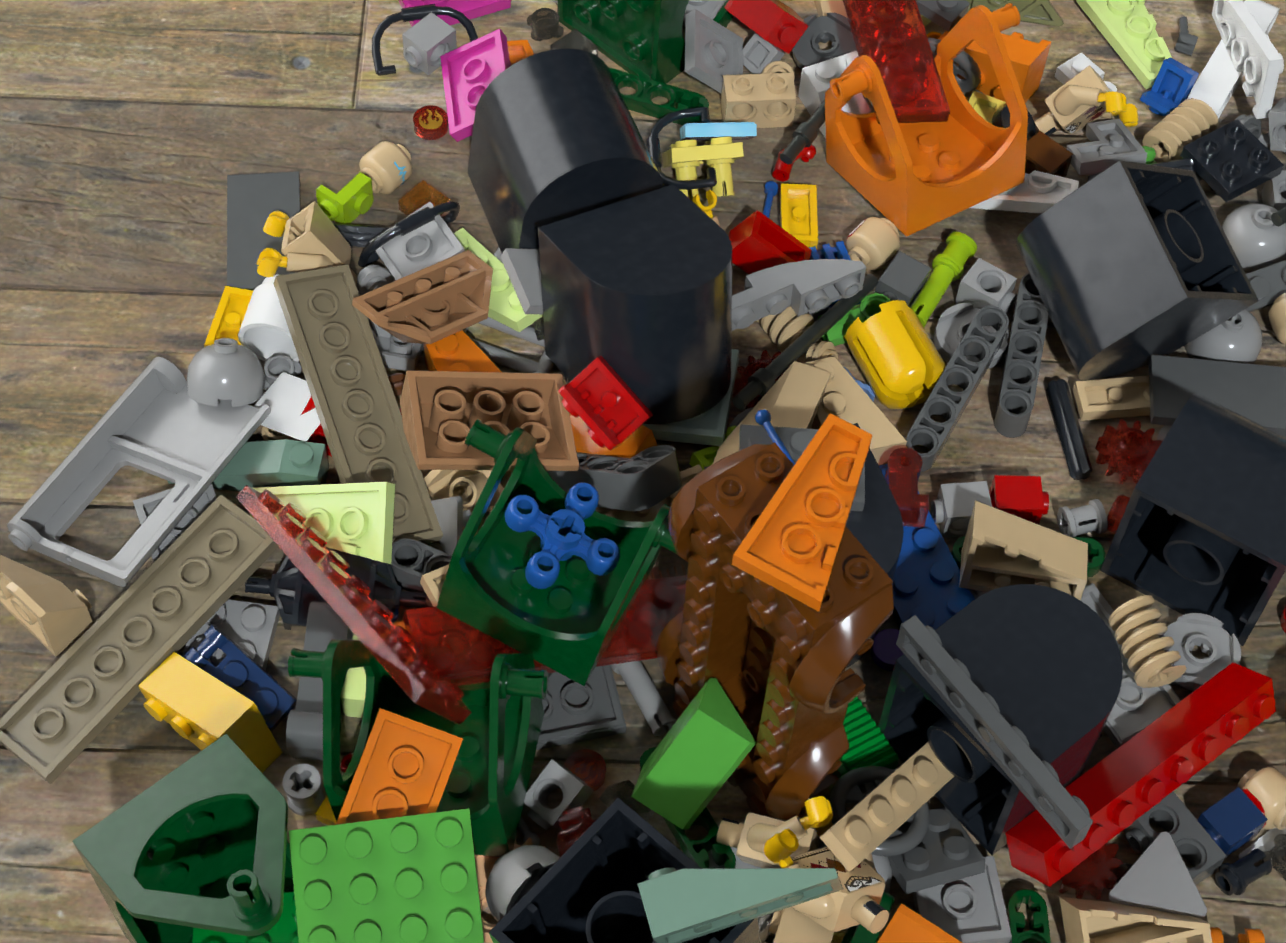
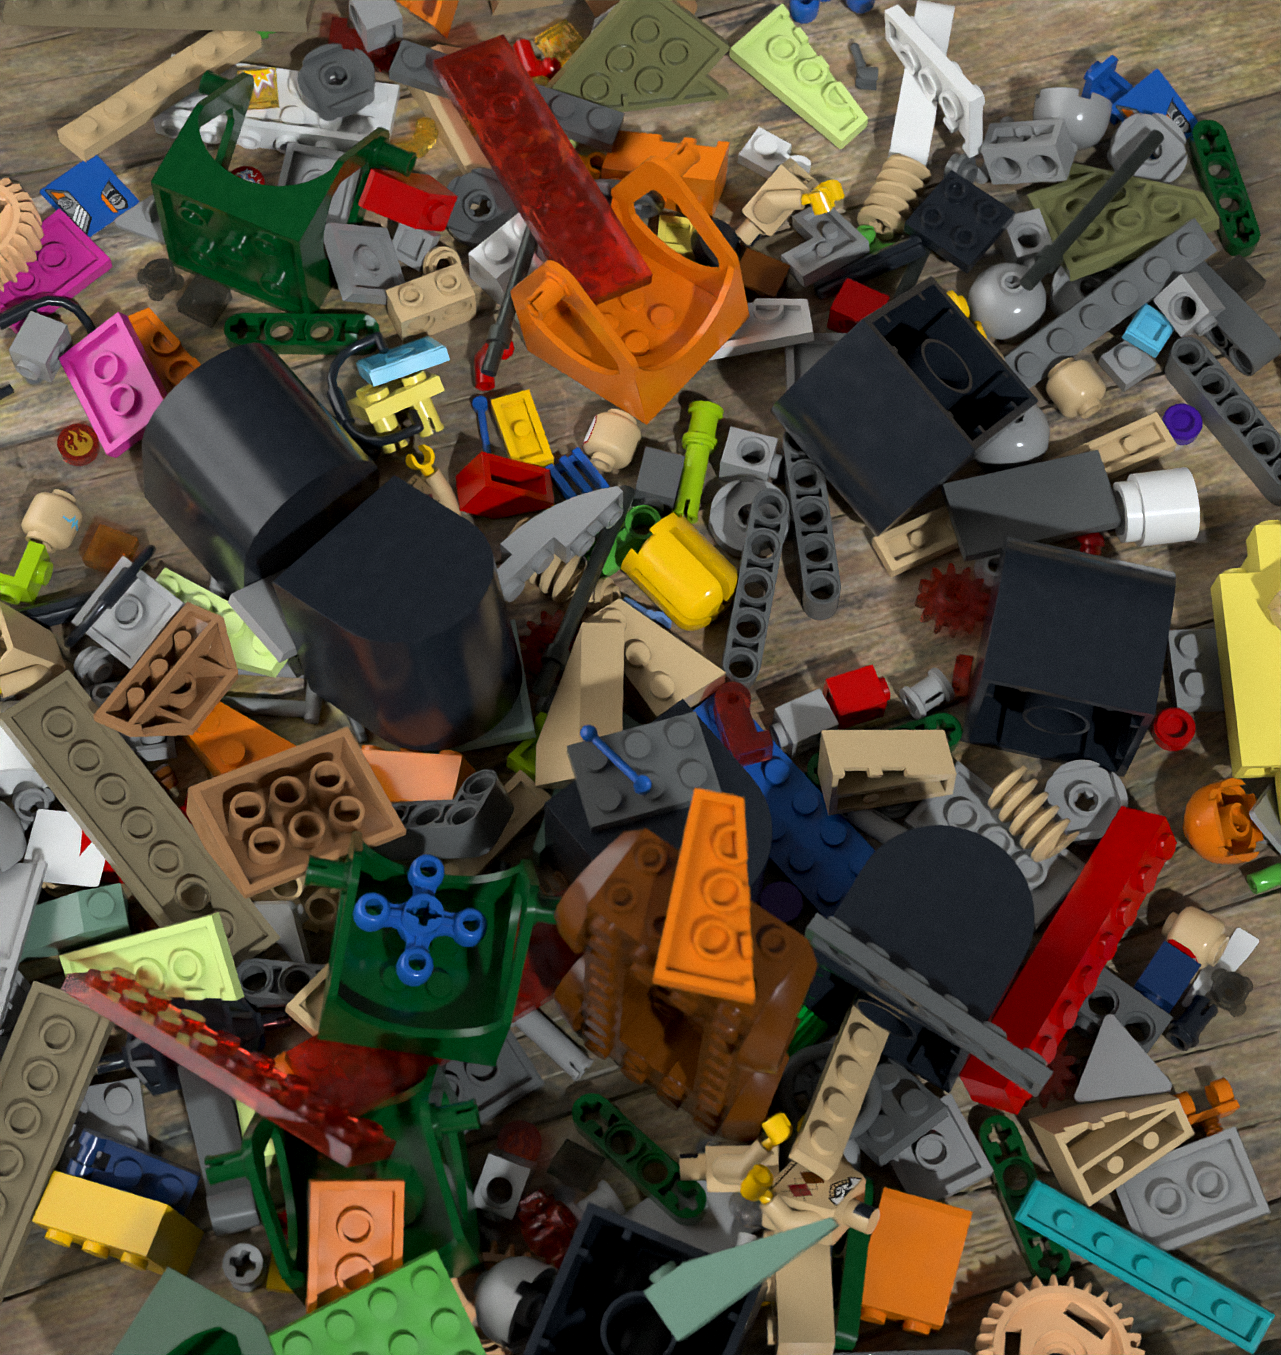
camera: 20 degrees left, 10 degrees up
(604, 404) = (407, 751): red bracket -> none
(694, 757) = (631, 1106): bright green slope -> none
(1069, 429) = (882, 592): black axle -> none
(1170, 87) = (867, 146): blue bracket -> none

